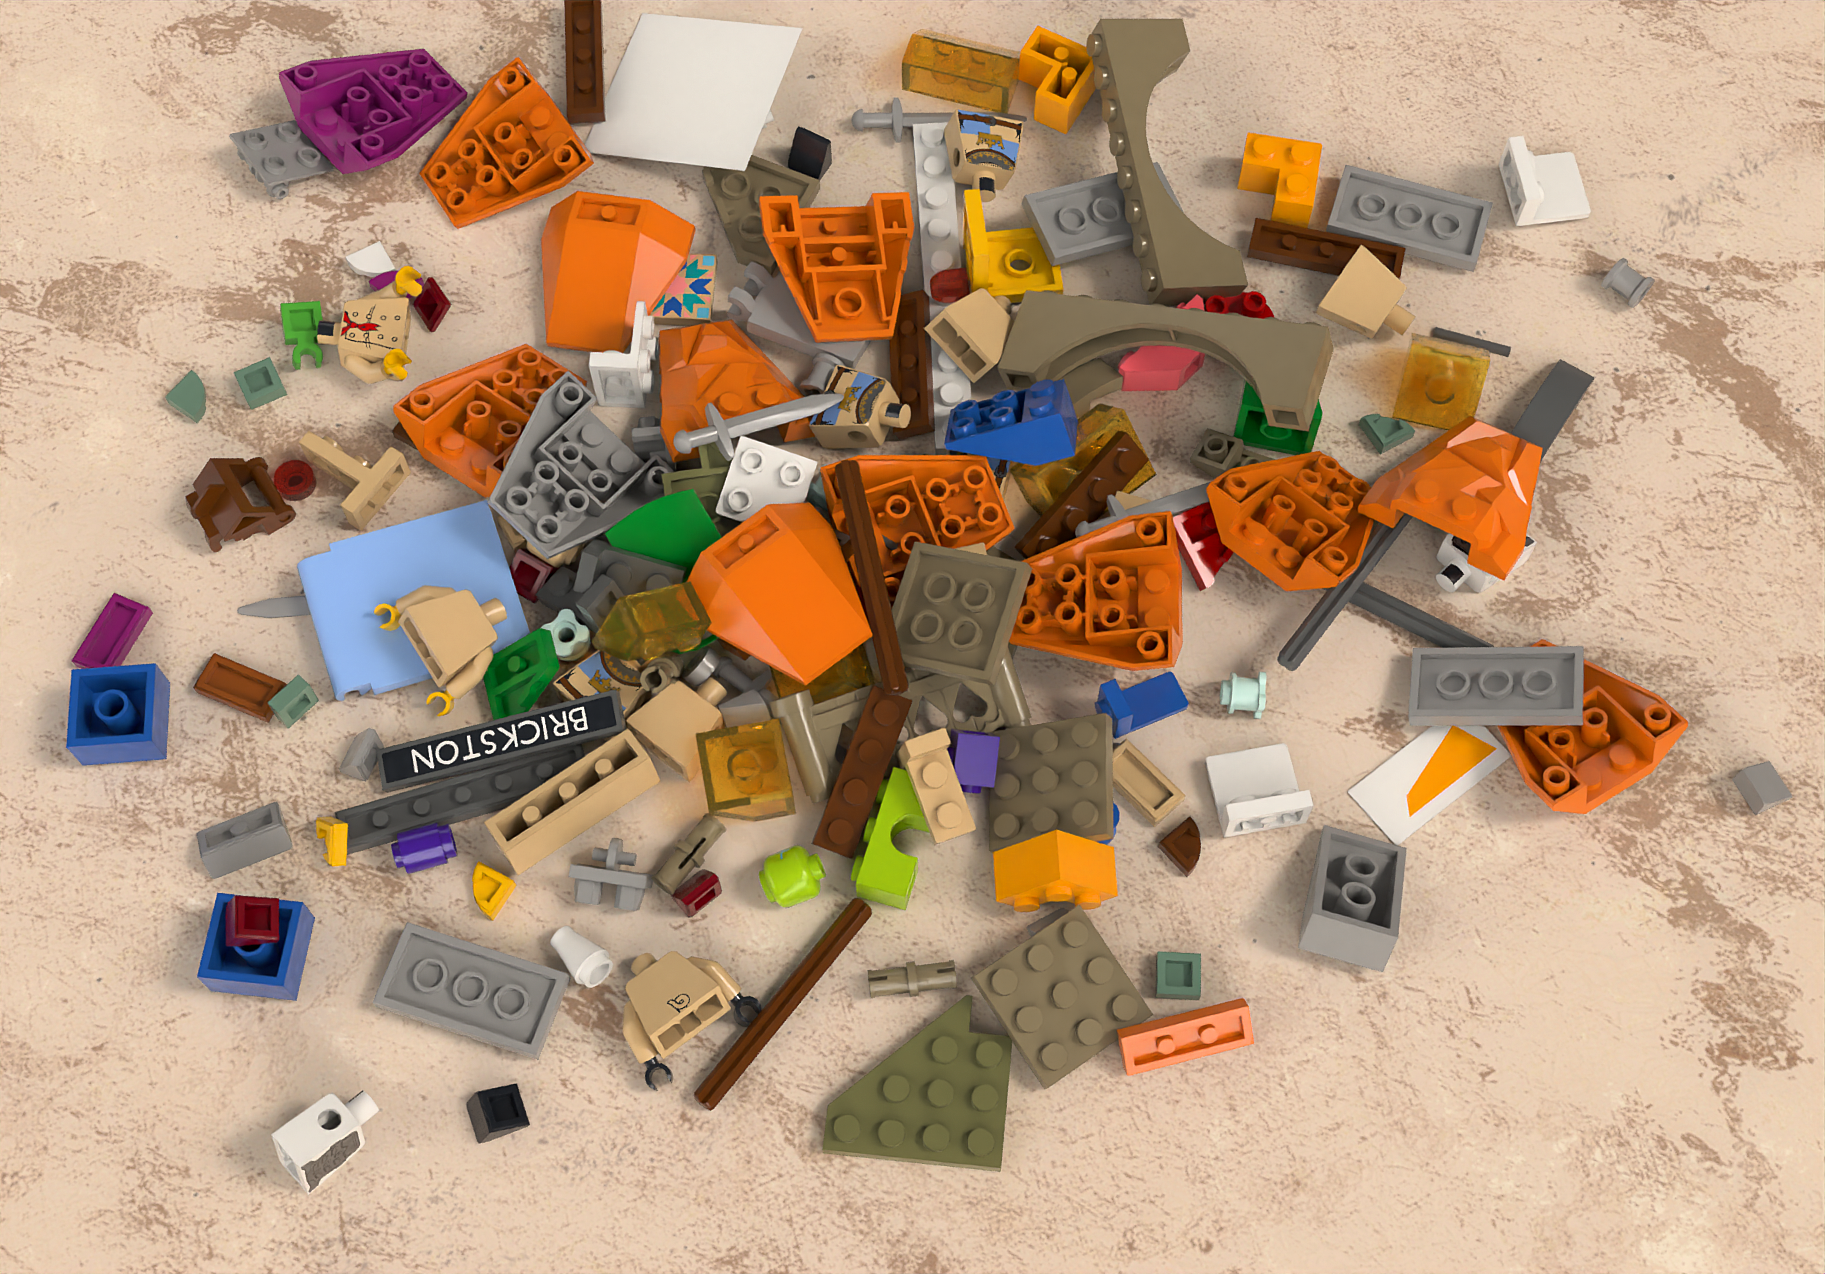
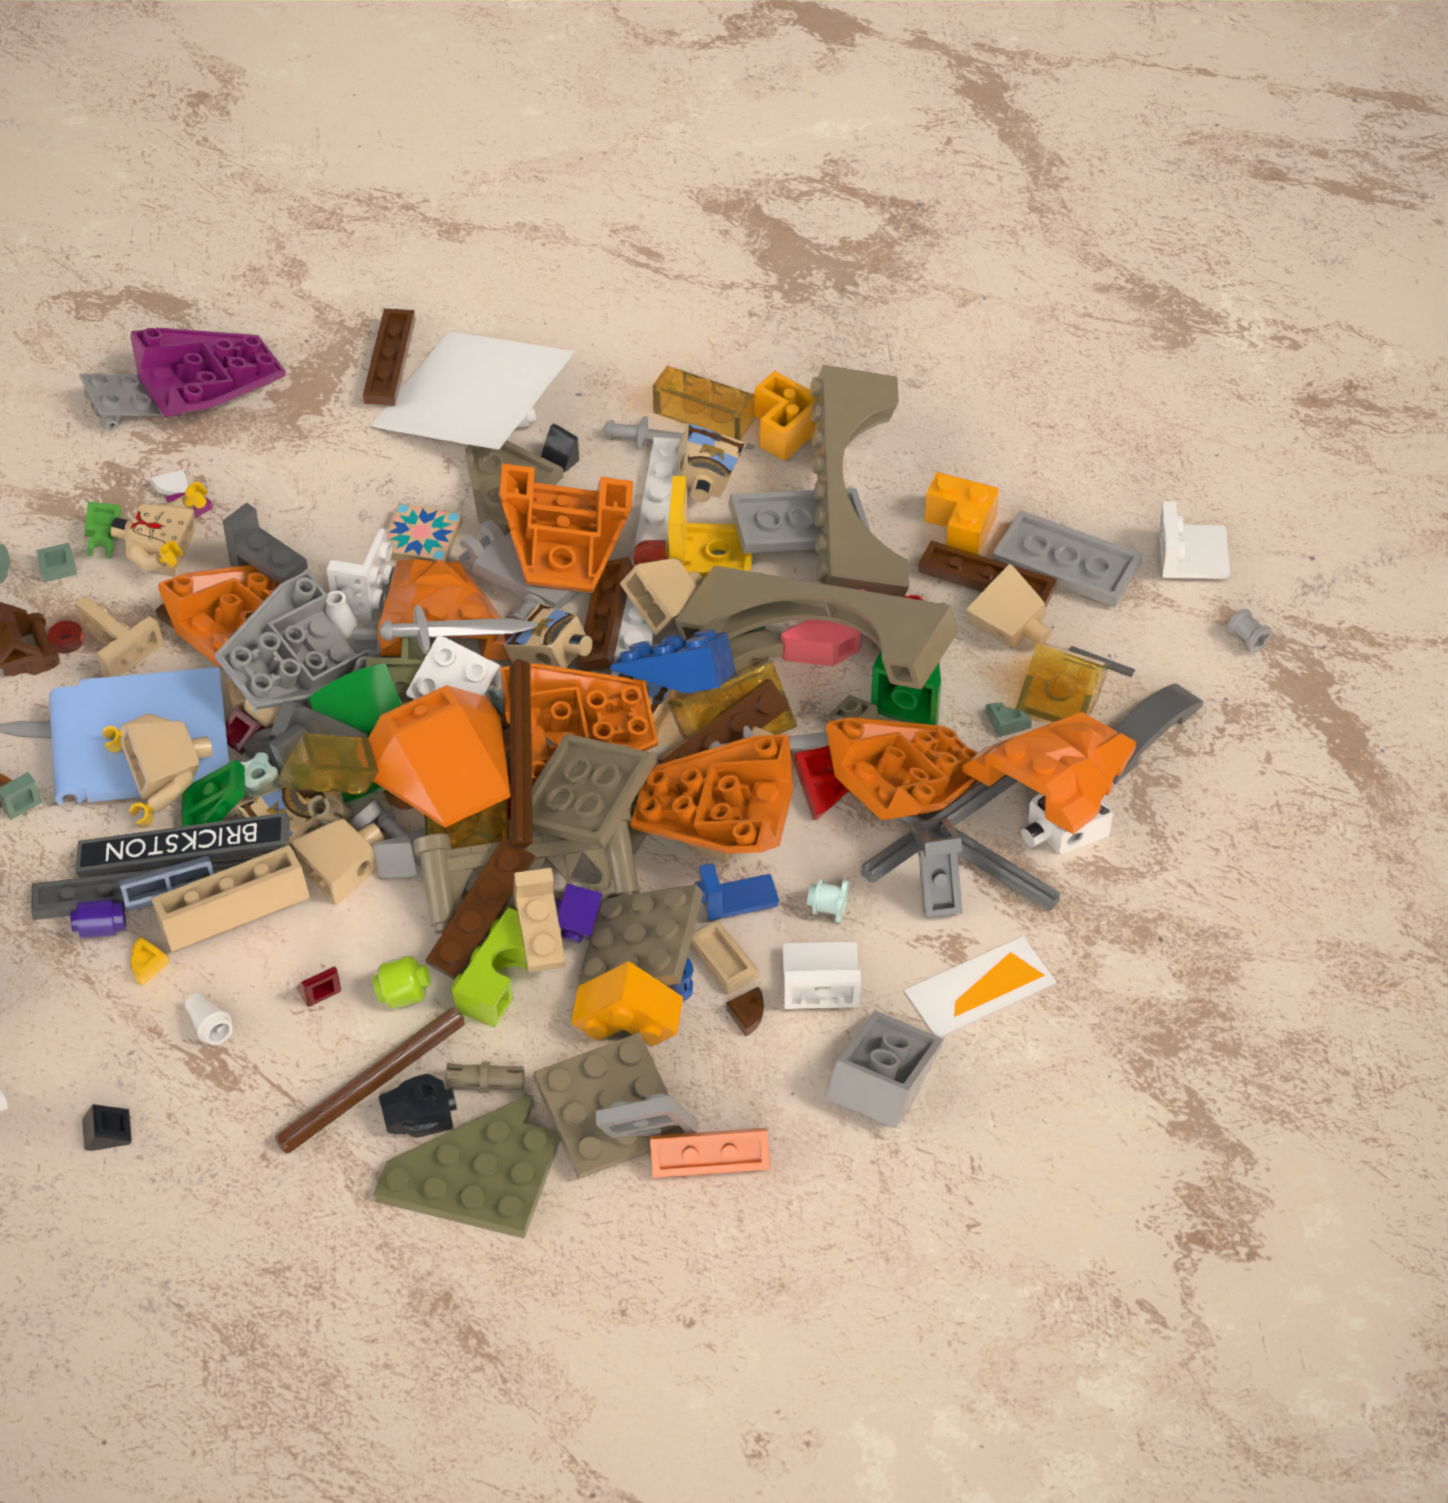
camera: 10 degrees right, 15 degrees down
(335, 837) = (26, 898): yellow tile -> none
(362, 755) = (65, 847): light grey slope -> none
(432, 304) = (211, 521): dark red slope -> none
(472, 990) = (110, 1031): light grey plate -> none
(489, 335) = (254, 546): none -> dark grey bracket
(490, 786) = (161, 878): none -> sand blue piece
(504, 150) = (303, 413): orange wedge -> none
(590, 878) = (262, 968): light grey hips -> none
(603, 259) = (364, 493): orange wedge -> none
(610, 410) = (340, 613): none -> white cone
(672, 874) = (301, 968): dark tan pin -> none
(674, 1003) = (275, 1060): tan torso -> none
(746, 772) = (383, 895): clear yellow slope -> none
(847, 1031) = (418, 1107): none -> black hand
(1128, 1012) = (644, 1117): none -> light grey wing
(1178, 975) = (717, 1108): sand green tile -> none
(1364, 634) = (938, 865): none -> bracket
(1497, 686) = (1049, 917): light grey plate -> none
(1619, 743) = (1118, 964): orange wedge -> none
(1761, 787) = (1274, 1035): light grey slope -> none

